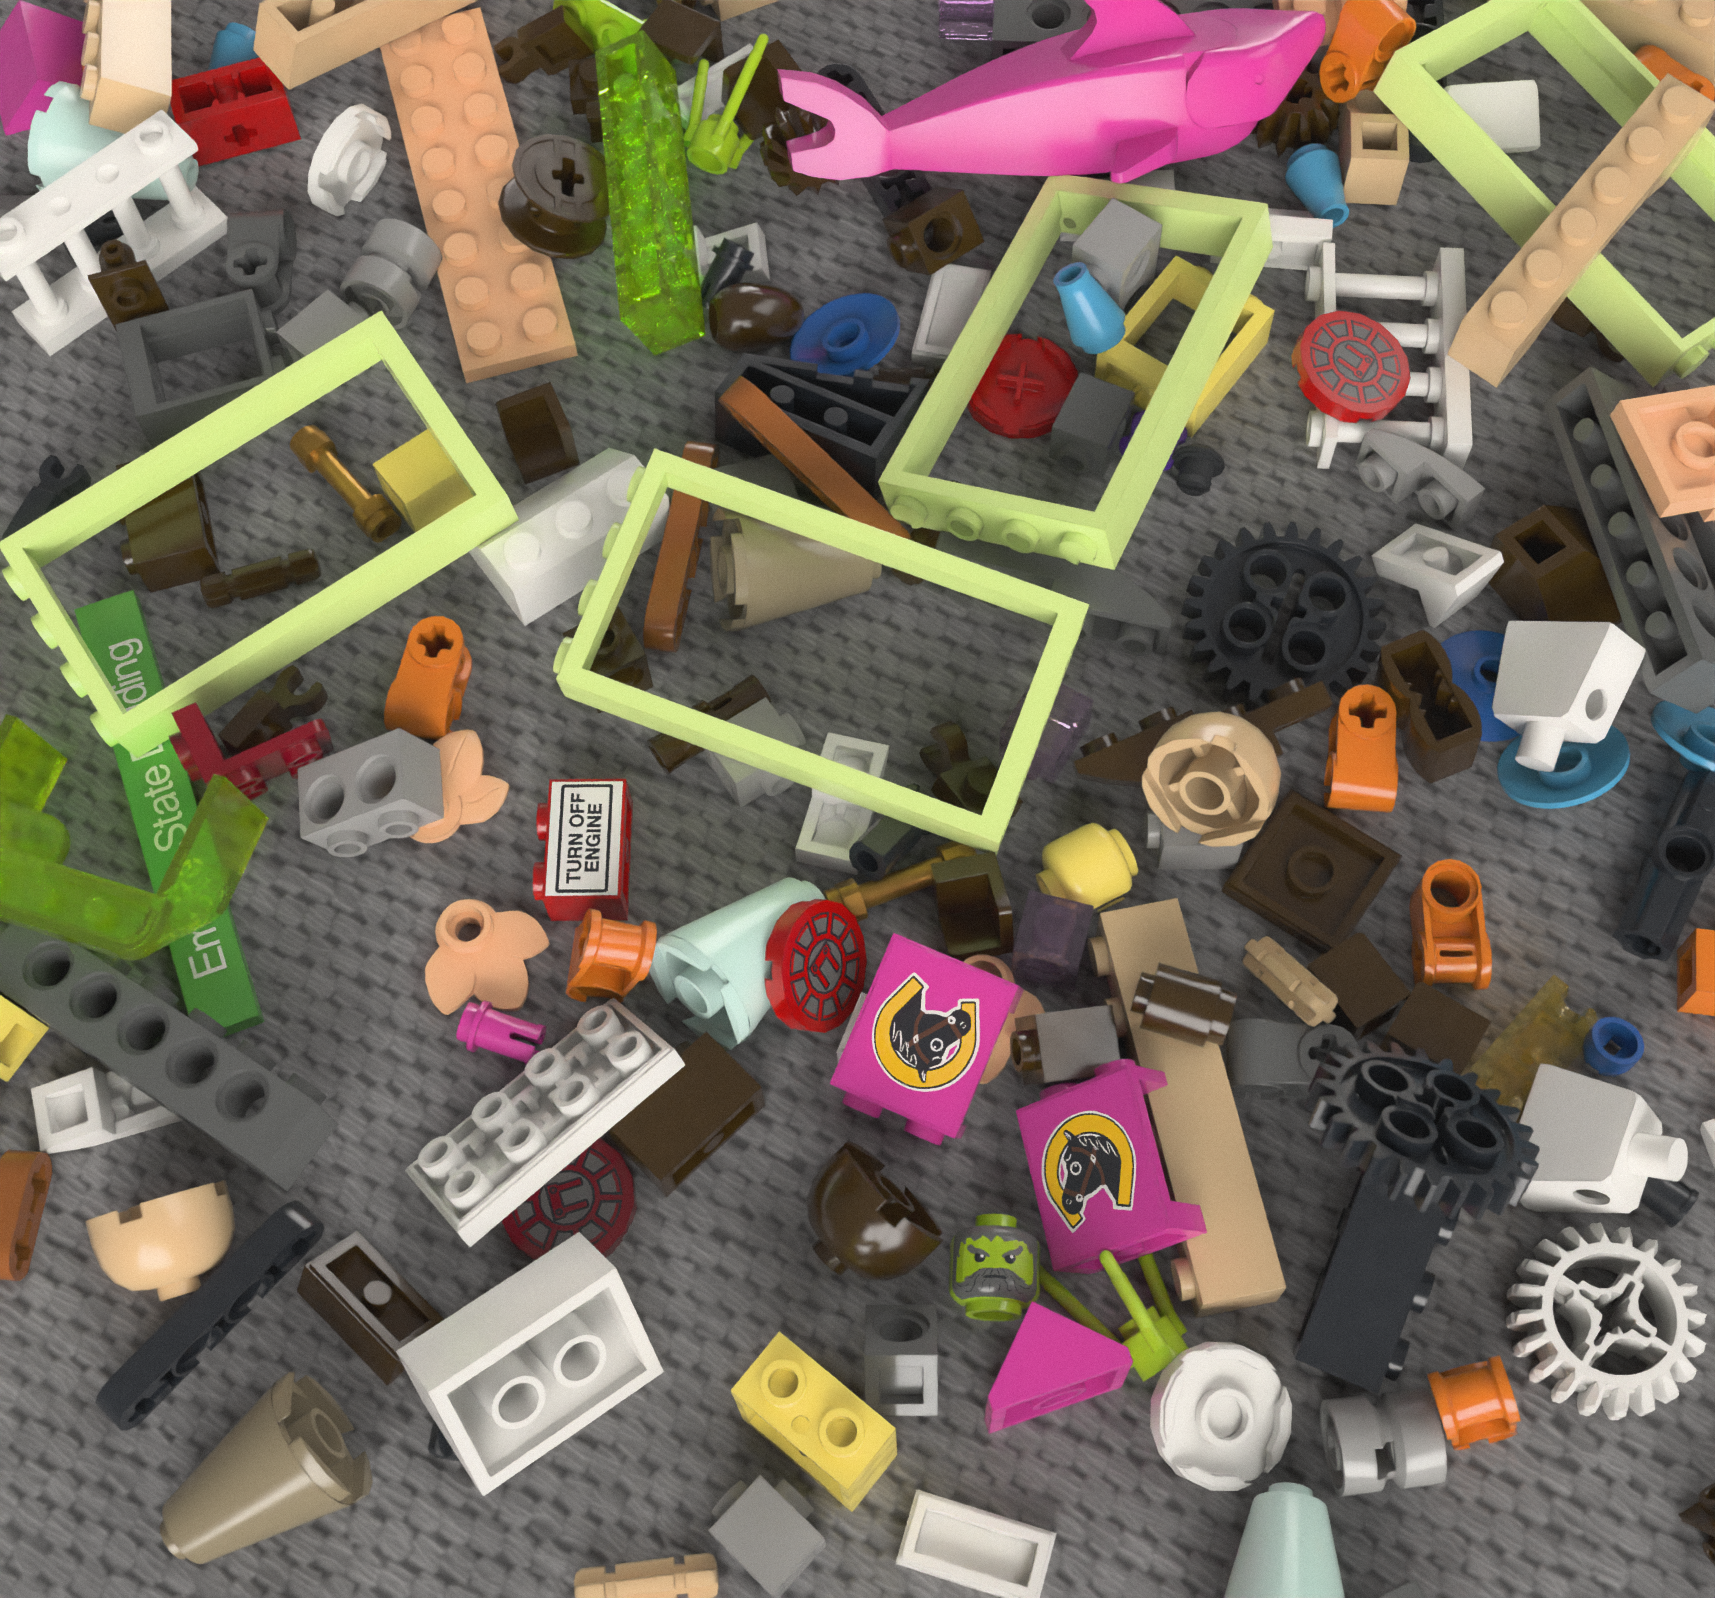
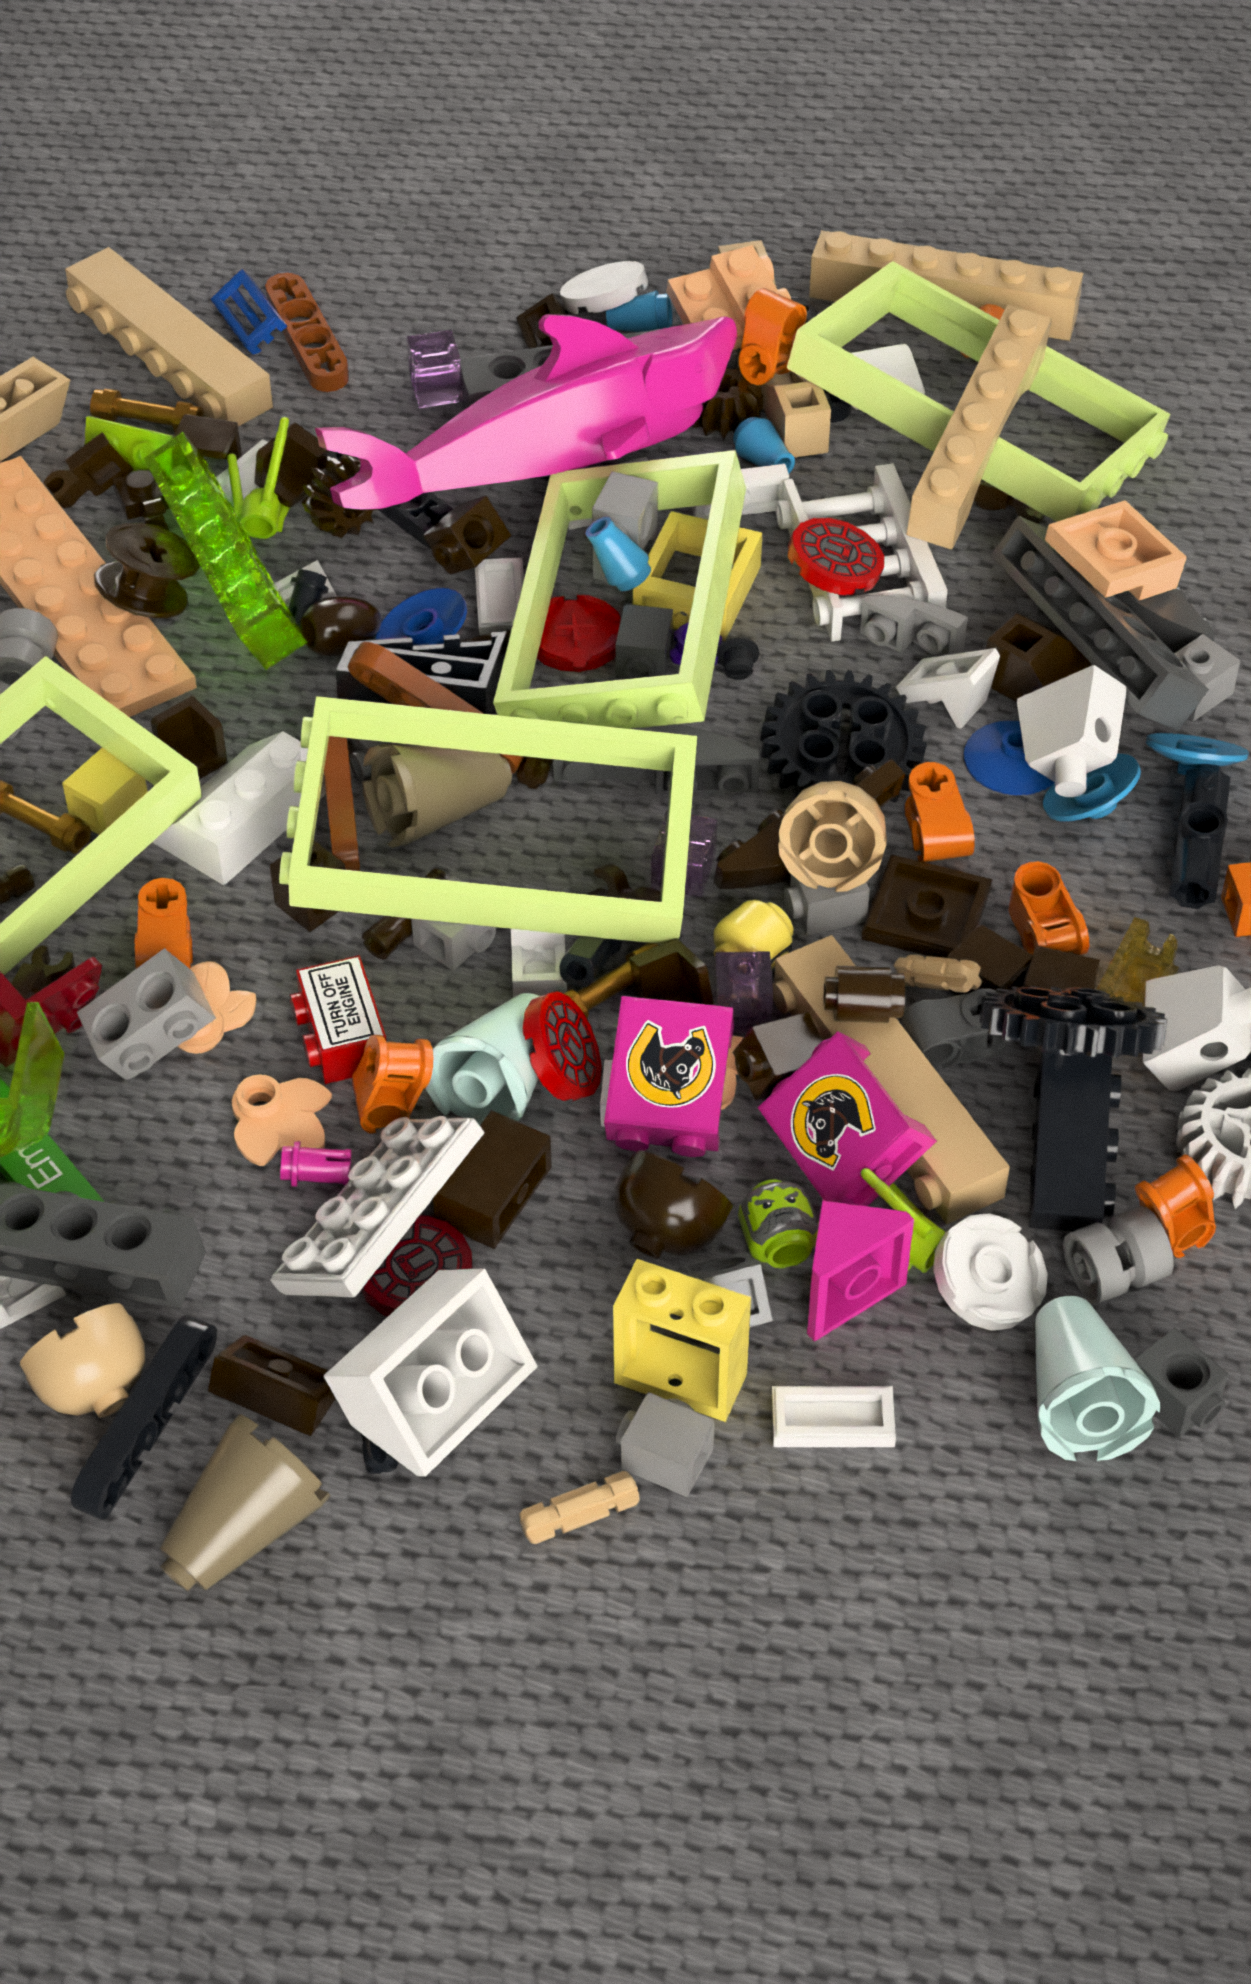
camera: 20 degrees left, 15 degrees down
(1435, 715) = (985, 771): dark brown brick -> none
(1622, 1034) = (1194, 957): blue hinge -> none

